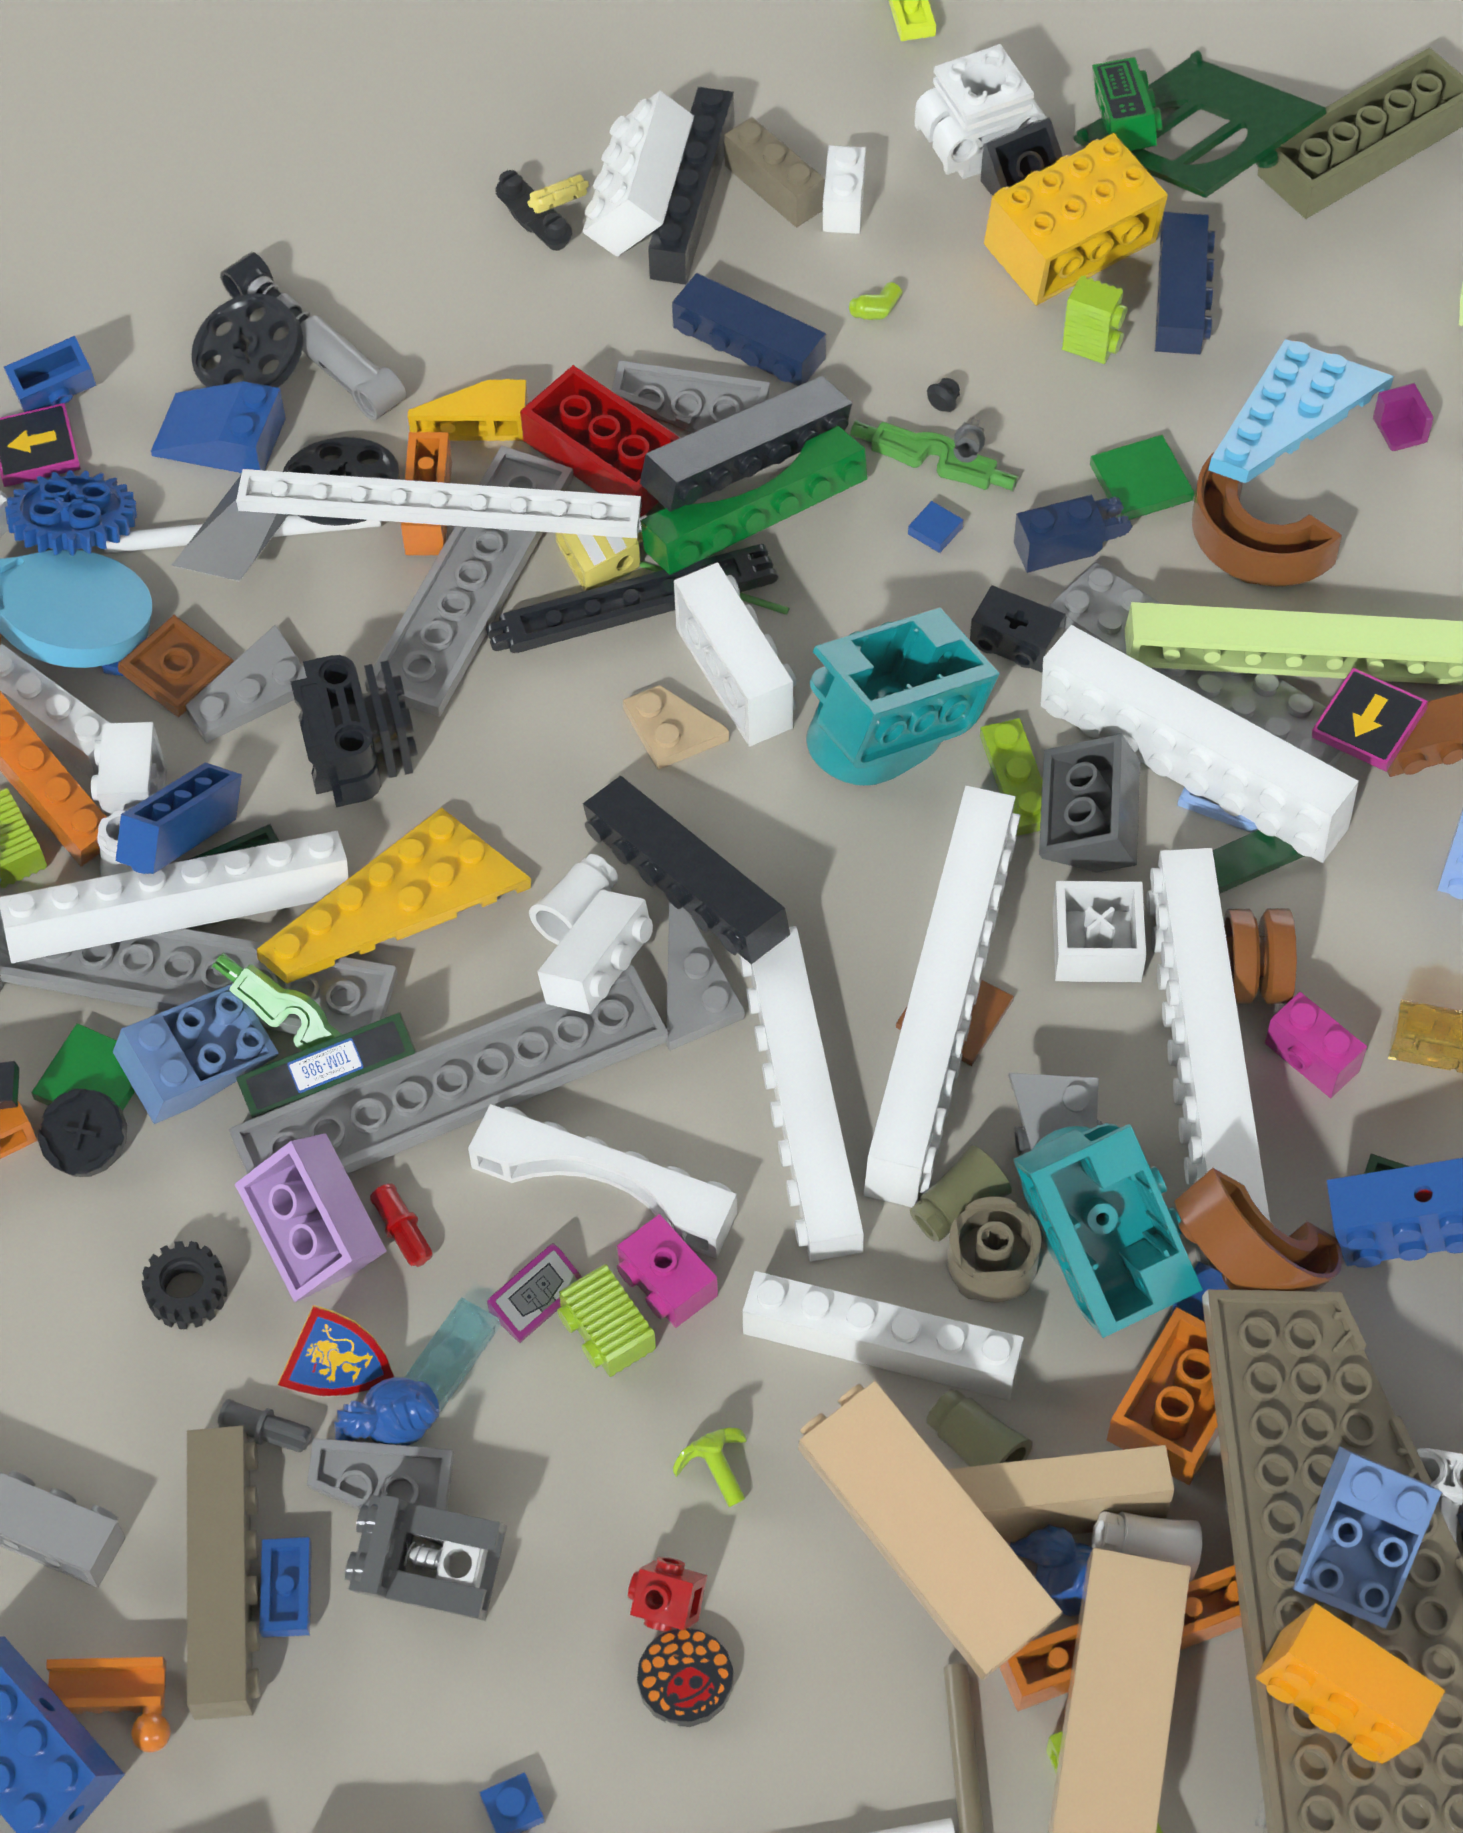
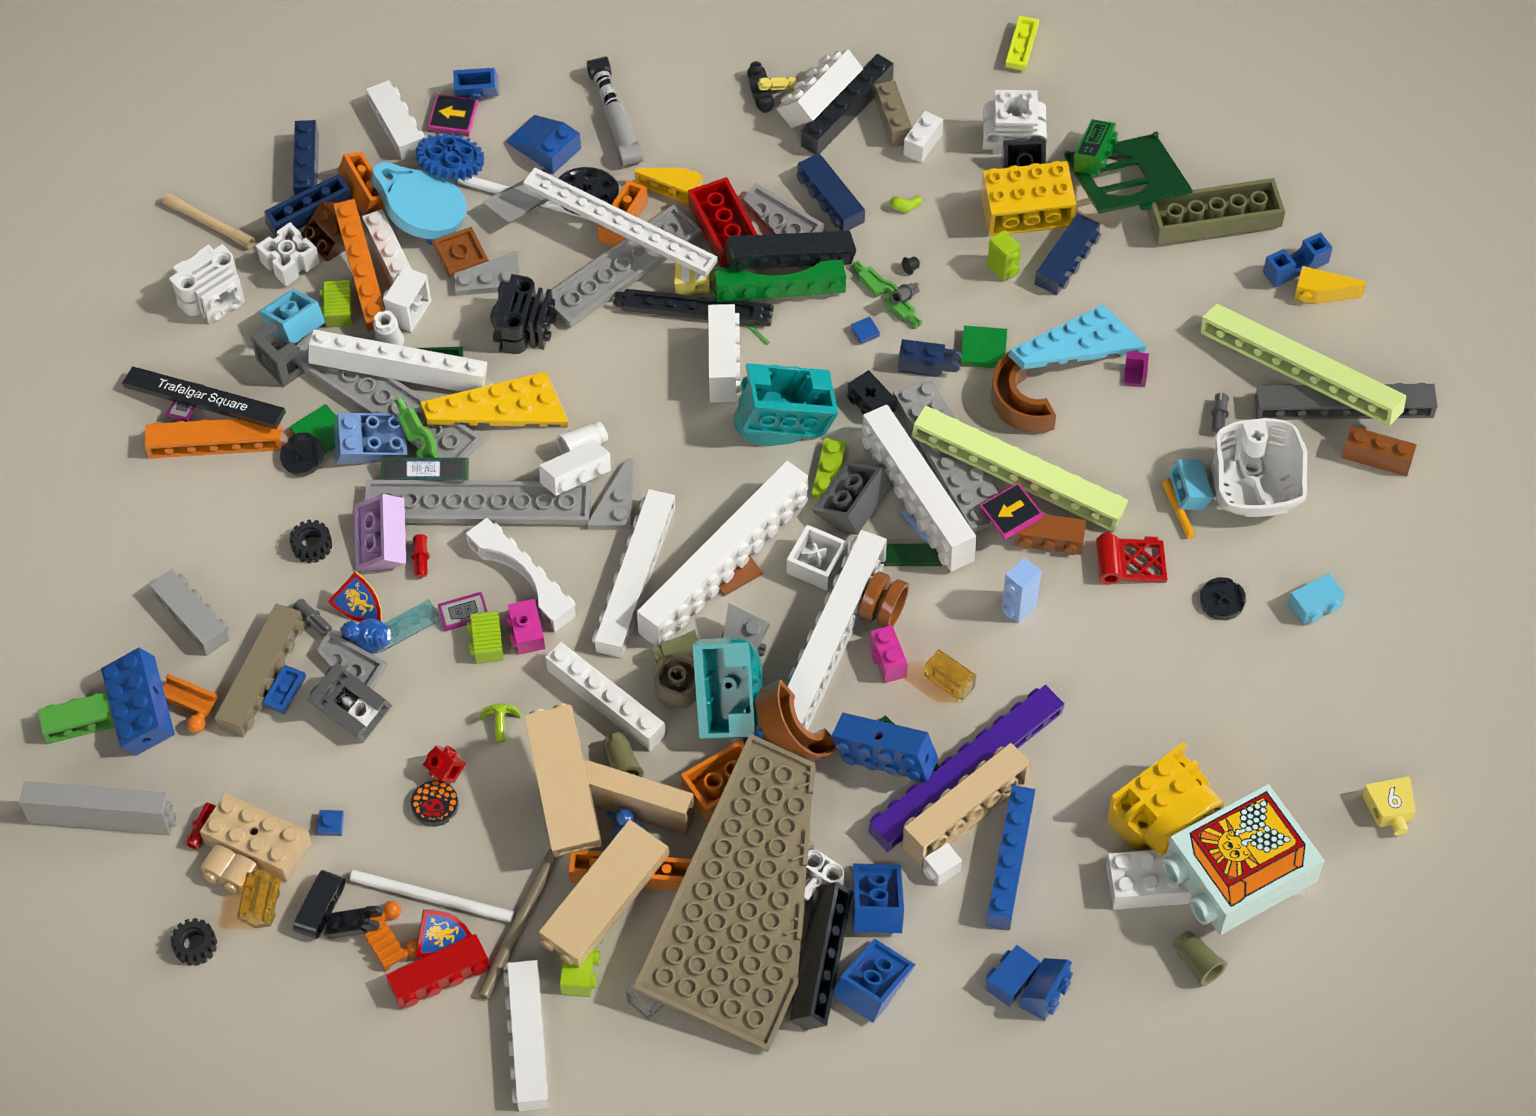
camera: 25 degrees right, 0 degrees up
(178, 818) = (415, 325): blue brick -> none
(261, 338) = (579, 103): black wedge -> none
(671, 726) = (677, 377): tan wing -> none
(686, 870) = (637, 446): black brick -> none
(1150, 1538) = (668, 833): white plant -> none
(1349, 1685) = (704, 924): light orange brick -> none
(1364, 1537) = (755, 869): medium blue slope -> none

